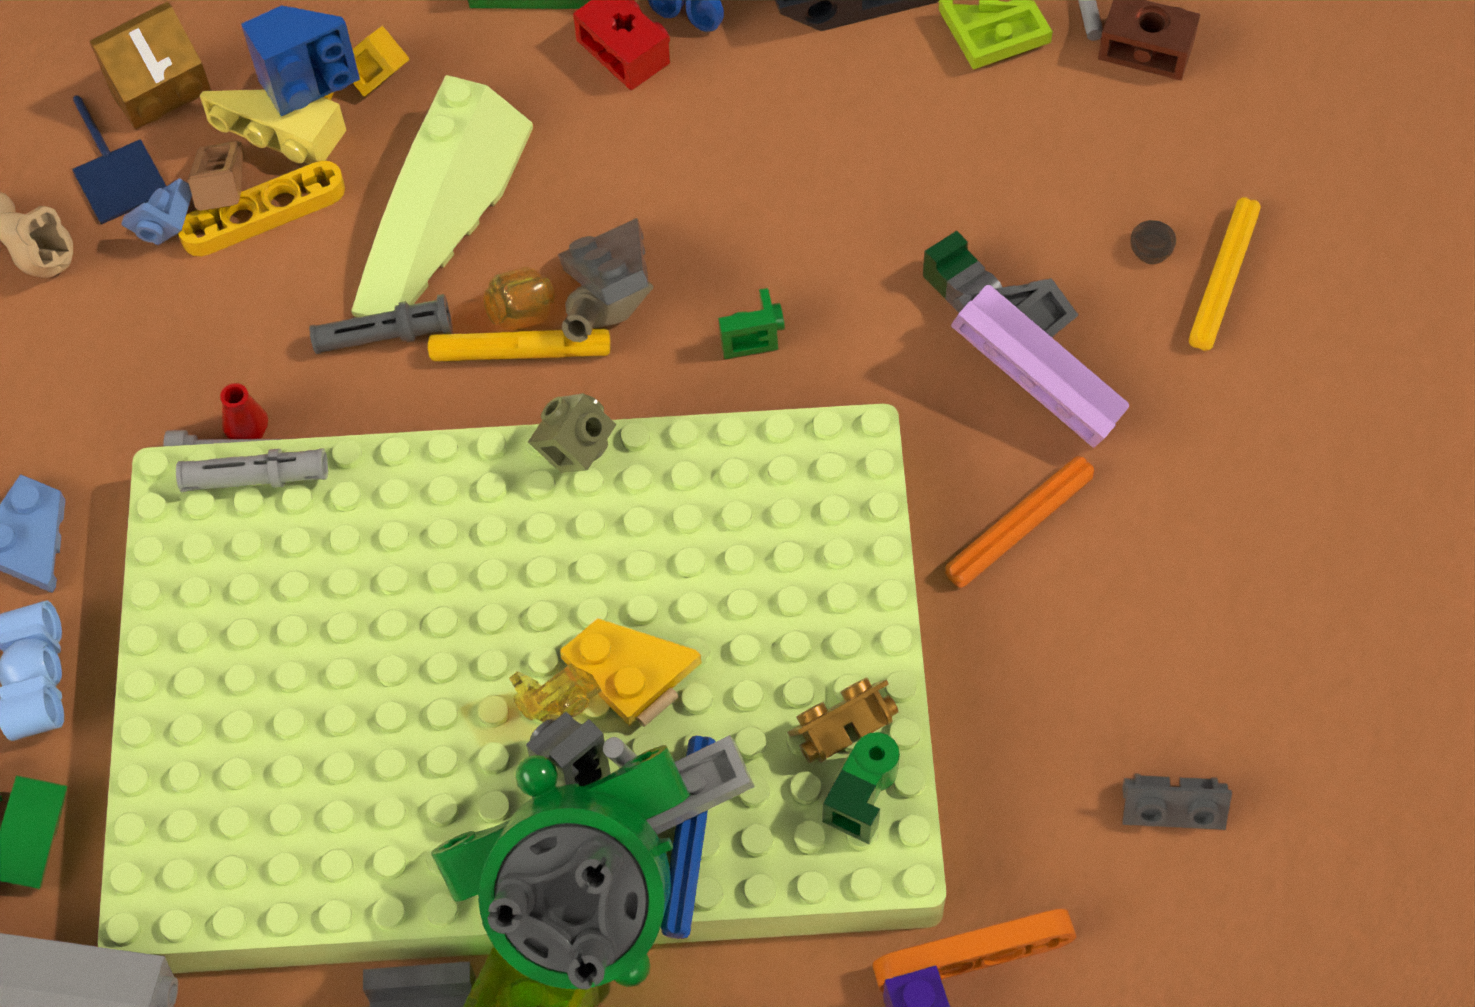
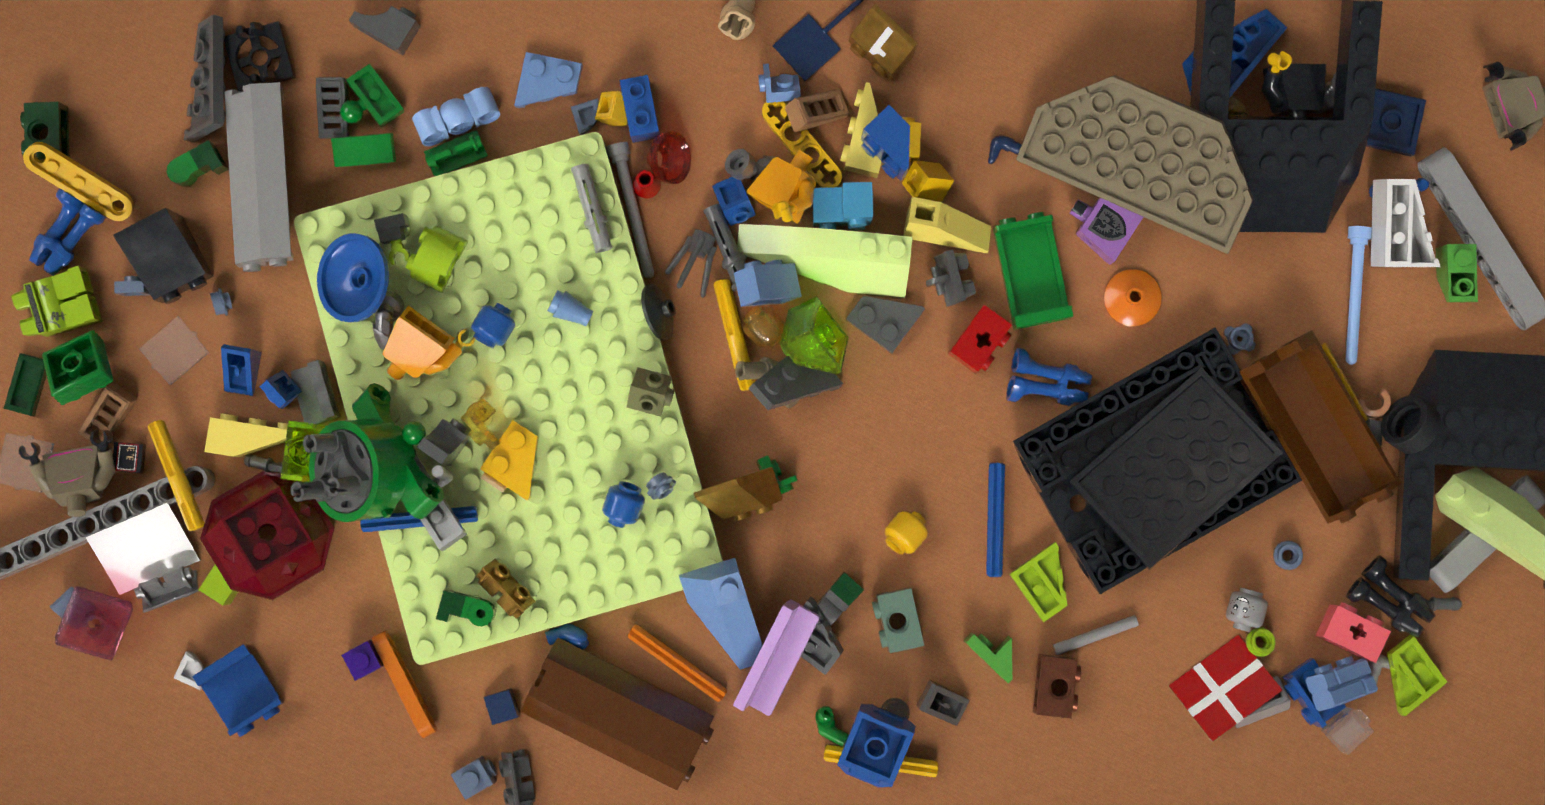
camera: 70 degrees right, 25 degrees up
(90, 688) = (455, 153): none -> green hinge
(103, 489) = (585, 115): none -> sand blue tile
(109, 439) = (611, 109): none -> yellow slope
(123, 400) = (639, 108): none -> blue brick
(180, 776) = (391, 231): none -> pearl dark grey piece
(205, 850) = (352, 277): none -> blue dish
(207, 374) = (675, 157): none -> clear red piece
(255, 718) = (435, 257): none -> lime cylinder
(309, 232) = (777, 183): none -> light orange torso
(310, 303) = (734, 201): none -> blue bracket
(369, 364) = (699, 246): none -> dark grey plant
(374, 151) = (843, 206): none -> dark azure brick
(378, 771) = (414, 342): none -> light orange torso
(393, 644) = (493, 325): none -> blue head
(400, 532) = (569, 308): none -> medium blue cone
(440, 50) = (945, 226): none -> light yellow slope
(448, 416) = (658, 312): none -> pearl dark grey dish
(453, 269) = (767, 283): none -> medium blue brick
(521, 56) = (948, 280): none -> dark grey hips
(552, 225) = (814, 337): none -> clear neon green slope
(558, 154) = (884, 320): none -> dark grey wing
(728, 451) = (660, 486): none -> sand blue plate
(744, 507) = (623, 504): none -> blue head
(772, 357) = (742, 495): none -> pearl gold slope
(882, 174) = (906, 532): none -> yellow head
(890, 69) = (995, 520): none -> blue axle
(939, 668) = (569, 633): none -> blue arm
(944, 409) = (723, 606): none -> medium blue wedge
(1030, 192) = (907, 636): none -> sand green brick
(1043, 799) = (502, 706): none -> dark blue slope
(1088, 615) = (618, 714): none -> reddish brown panel
(1090, 99) = (999, 660): none -> bright green slope
(1144, 180) = (942, 703): none -> dark grey slope
(1158, 867) = (475, 777): none -> sand blue bracket
(1160, 334) = (827, 728): none -> green arm
(1205, 254) = (876, 746): none -> blue slope

